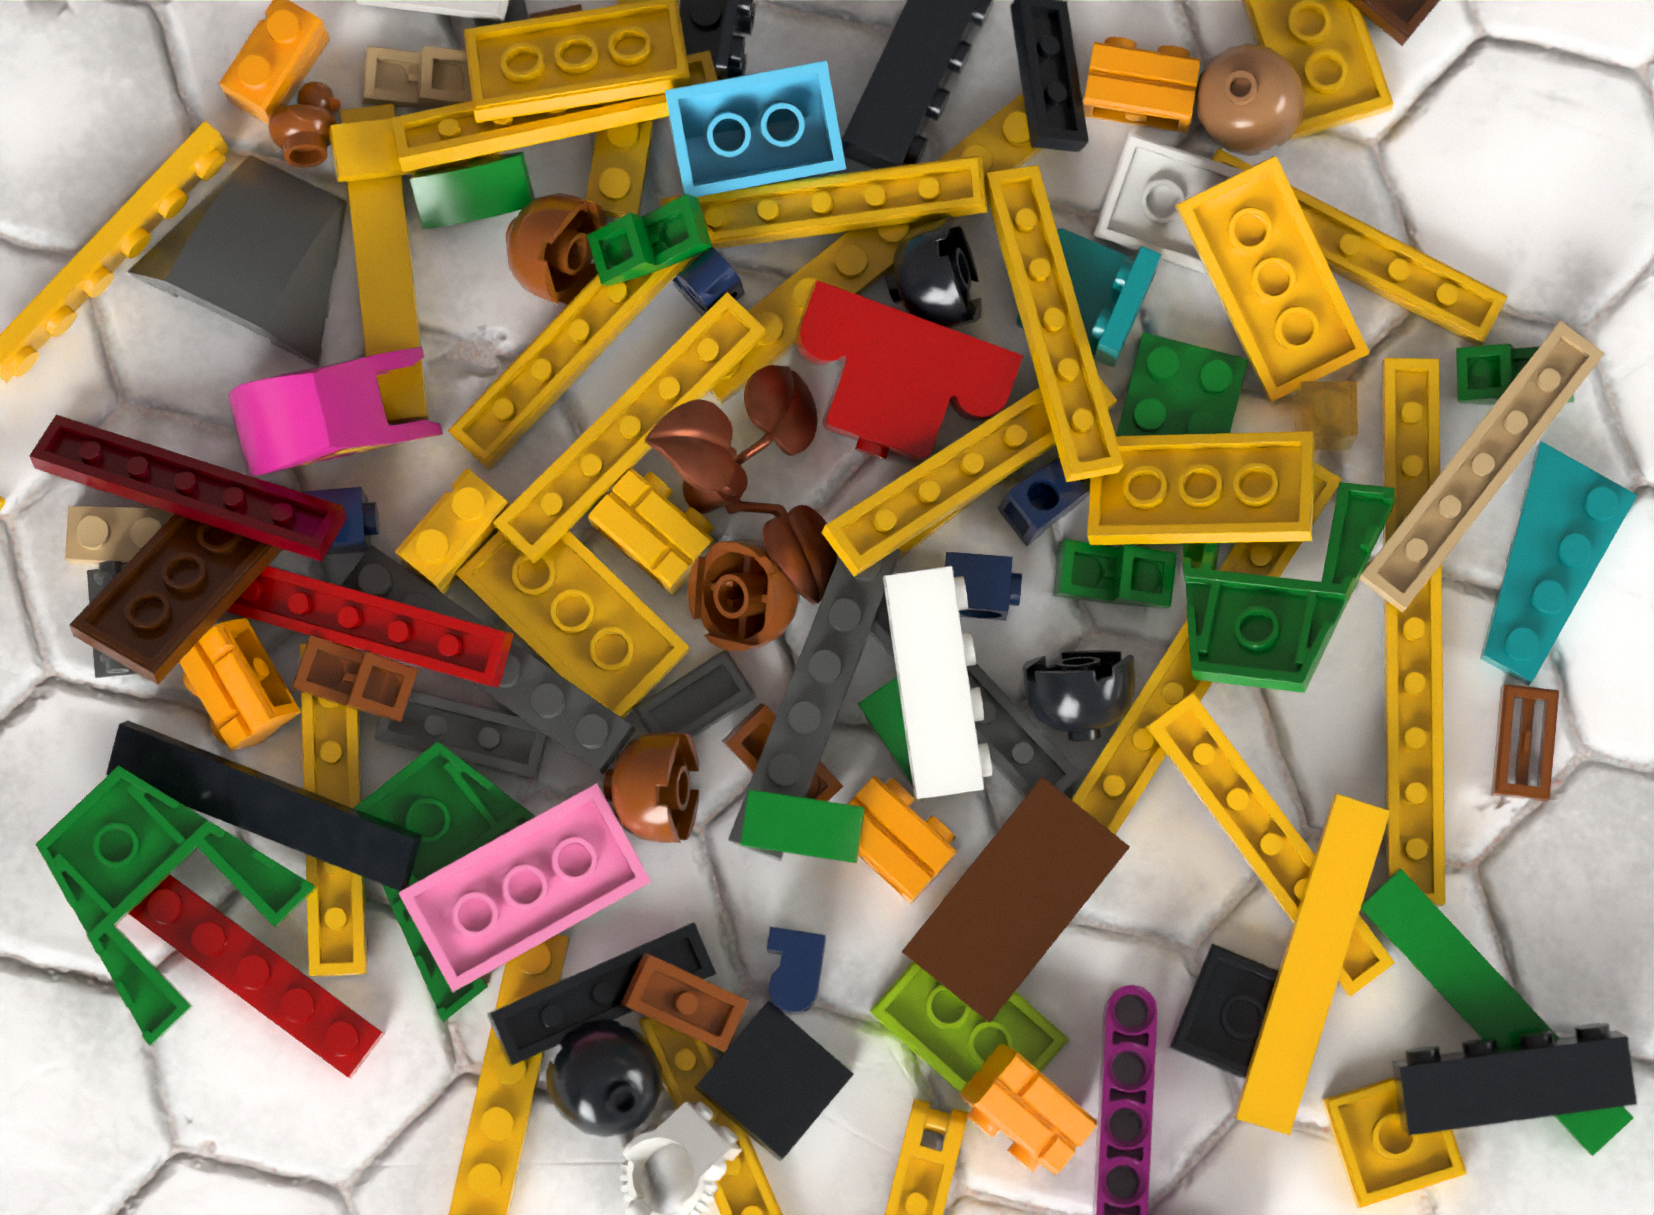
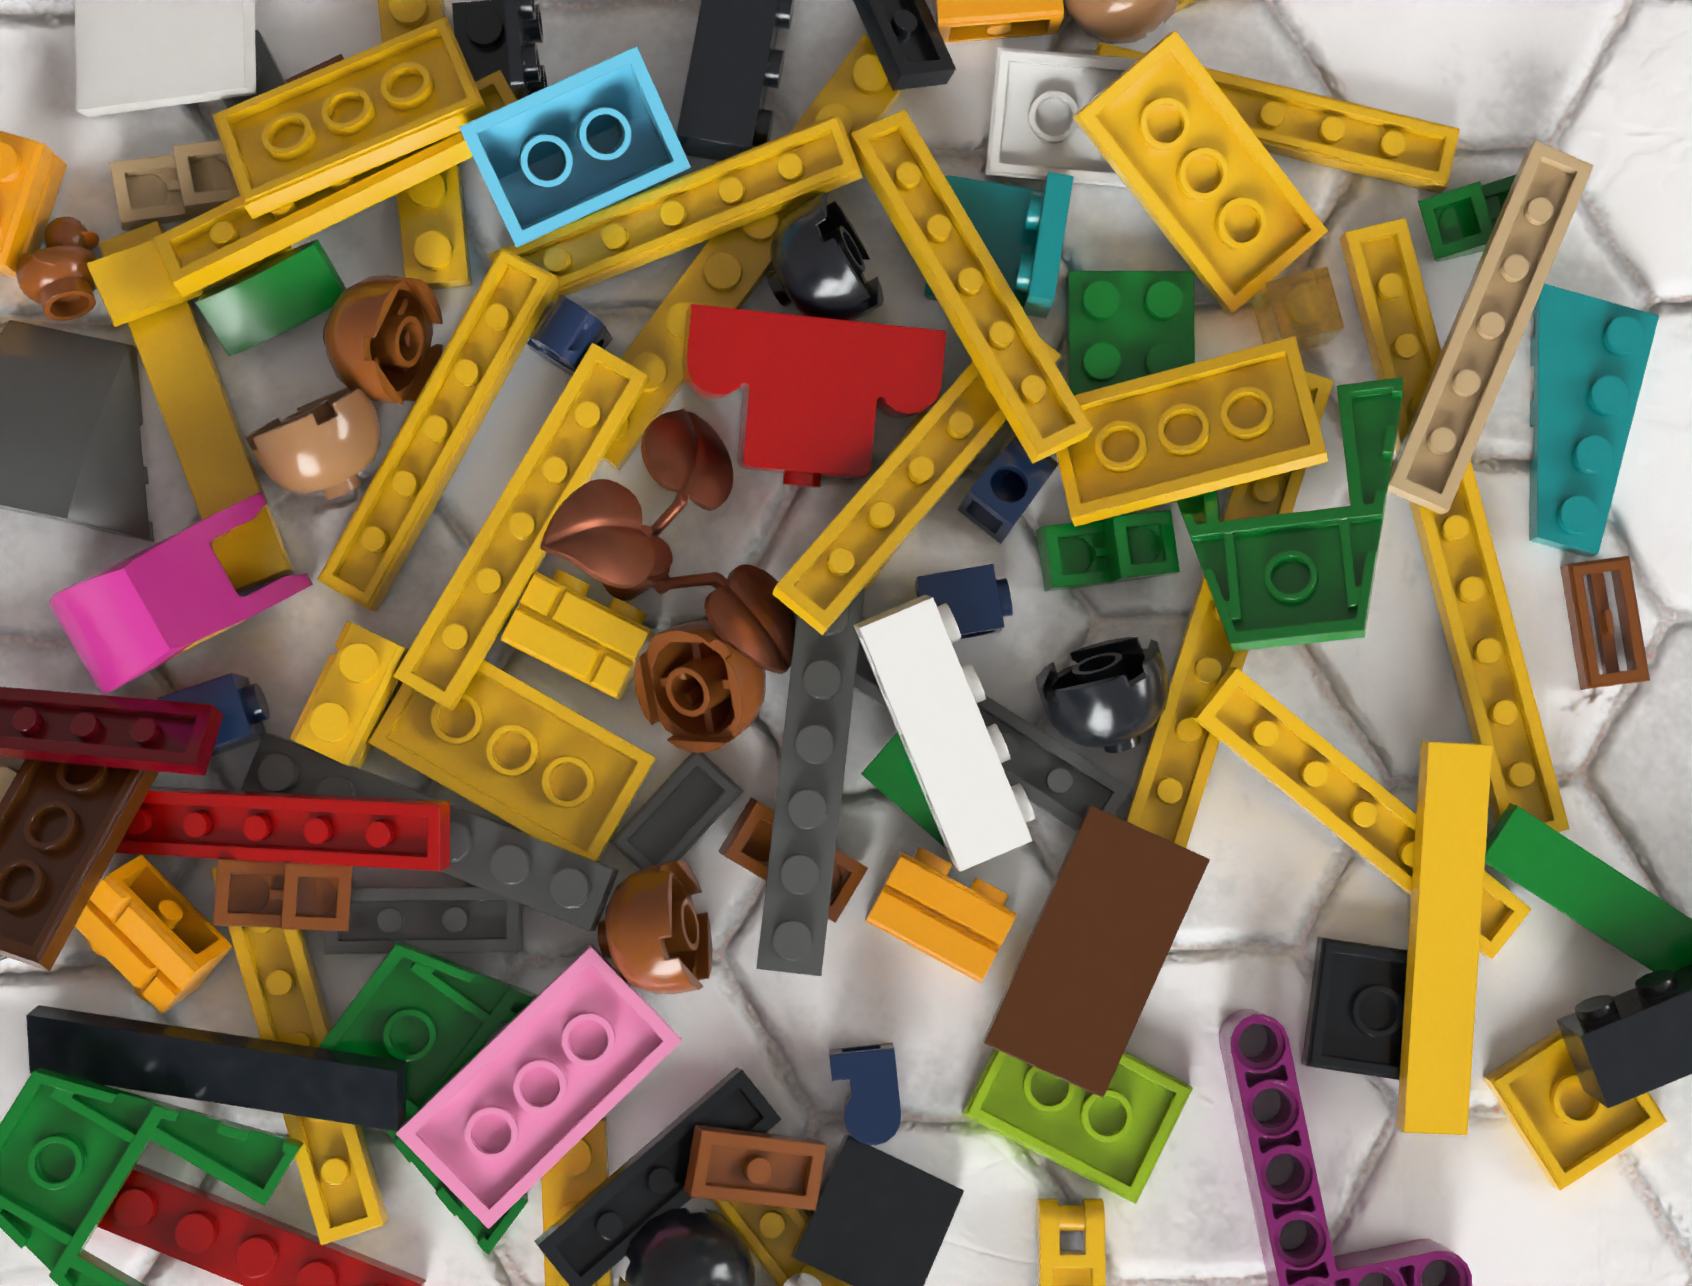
camera: 25 degrees left, 5 degrees up
(481, 320) = (320, 444): none -> medium nougat cylinder
(649, 242) = (489, 308): green slope -> none
(802, 826) = (837, 936): green slope -> none
(1027, 1109) = (1171, 1186): light orange brick -> none

